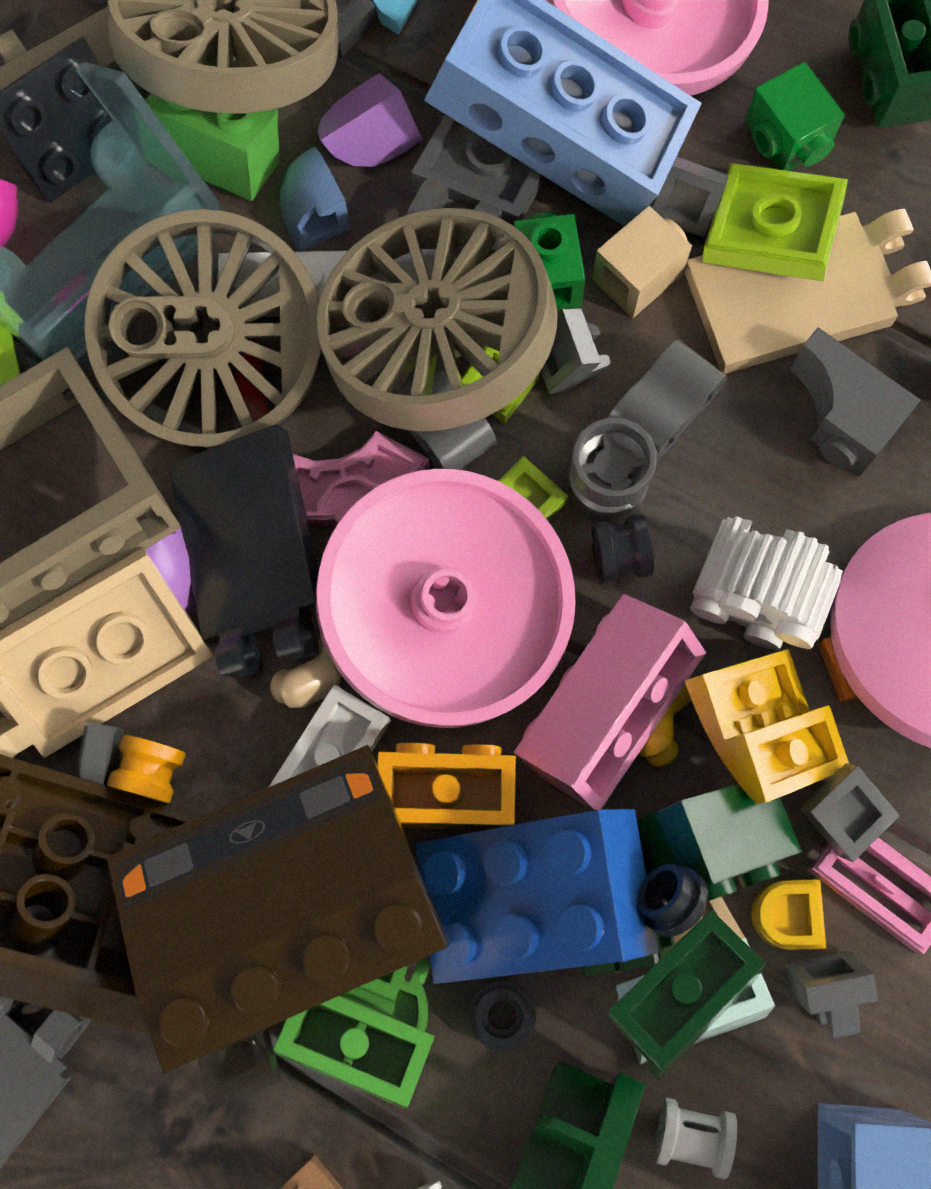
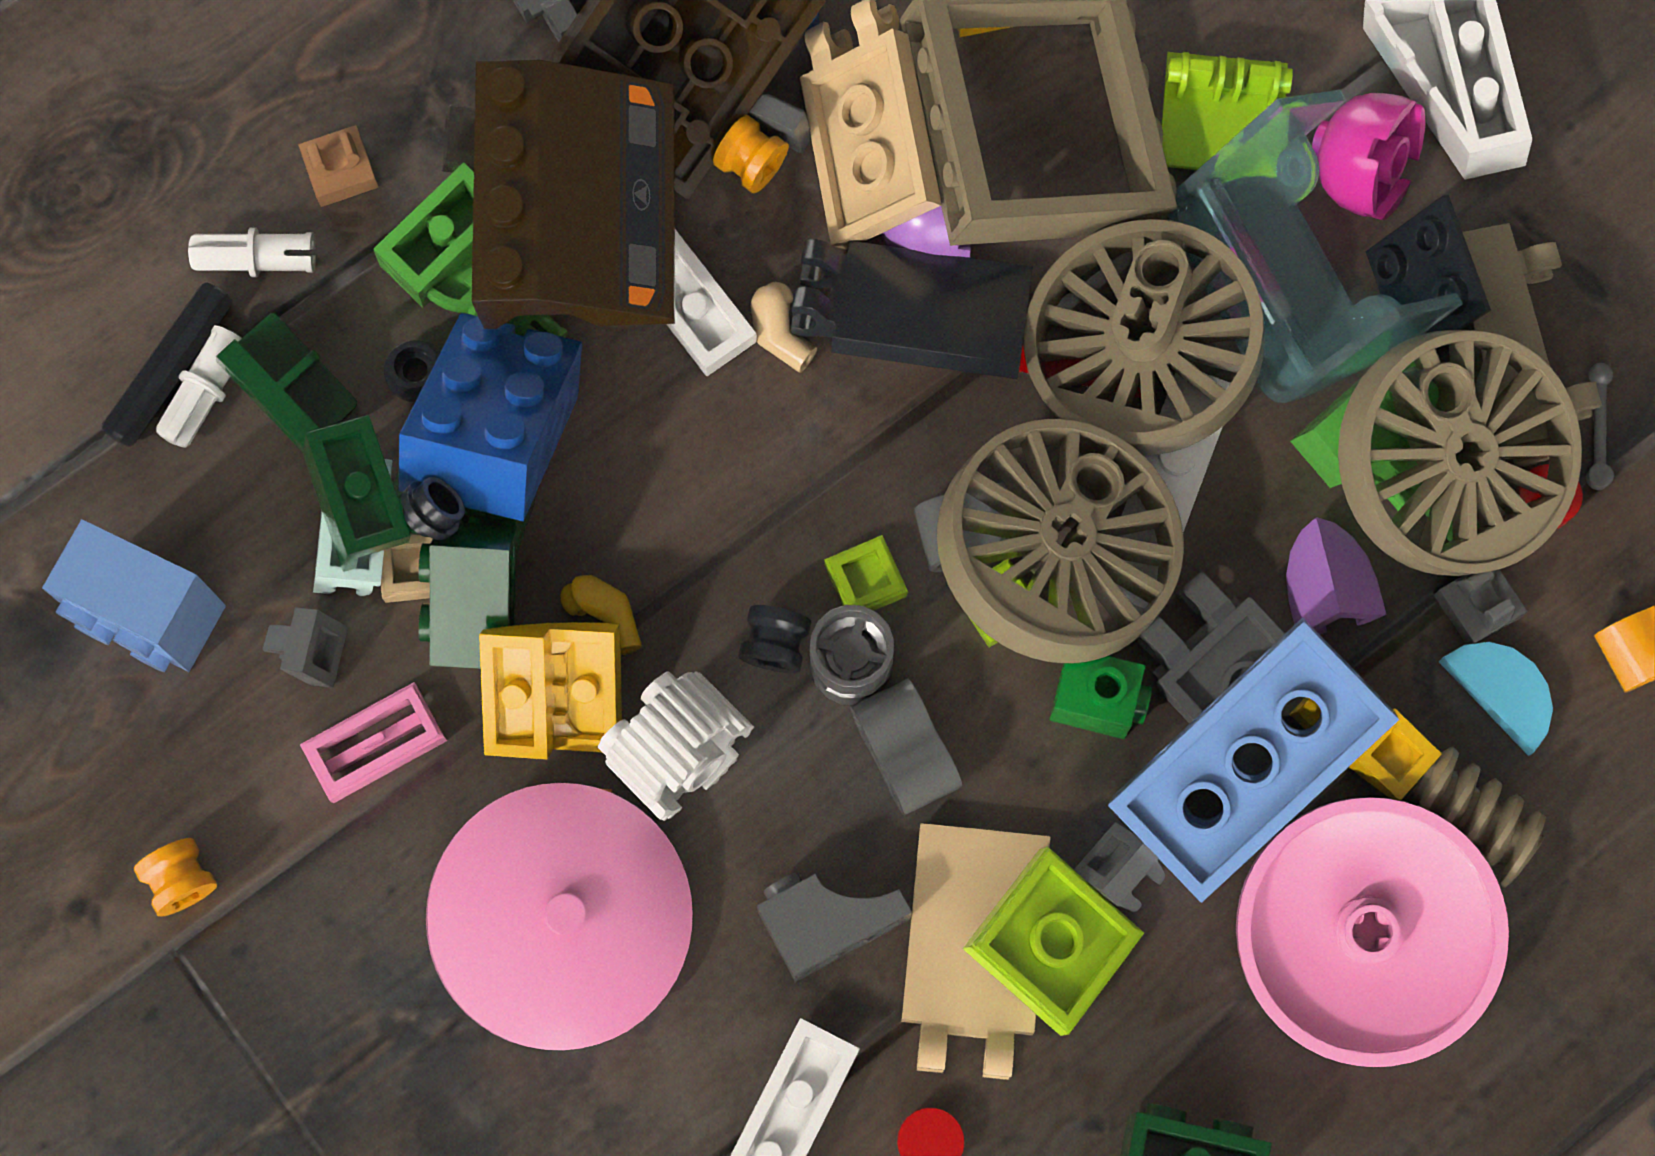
camera: 110 degrees right, 0 degrees up
(312, 202) = (1266, 497): medium blue brick -> none
(337, 484) = (946, 424): bright pink tile -> none
(445, 598) = (791, 455): bright pink dish -> none
(450, 789) = (616, 390): light orange brick -> none
(573, 353) = (997, 672): dark grey tile -> none
(610, 701) = (634, 561): bright pink brick -> none
(641, 261) = (1064, 788): tan brick -> none
(695, 1138) = (247, 482): light grey bush -> none
(790, 915) = (385, 649): yellow tile -> none
(794, 119) = (1163, 1015): green brick -> none
(849, 812) = (444, 726): dark grey tile -> none

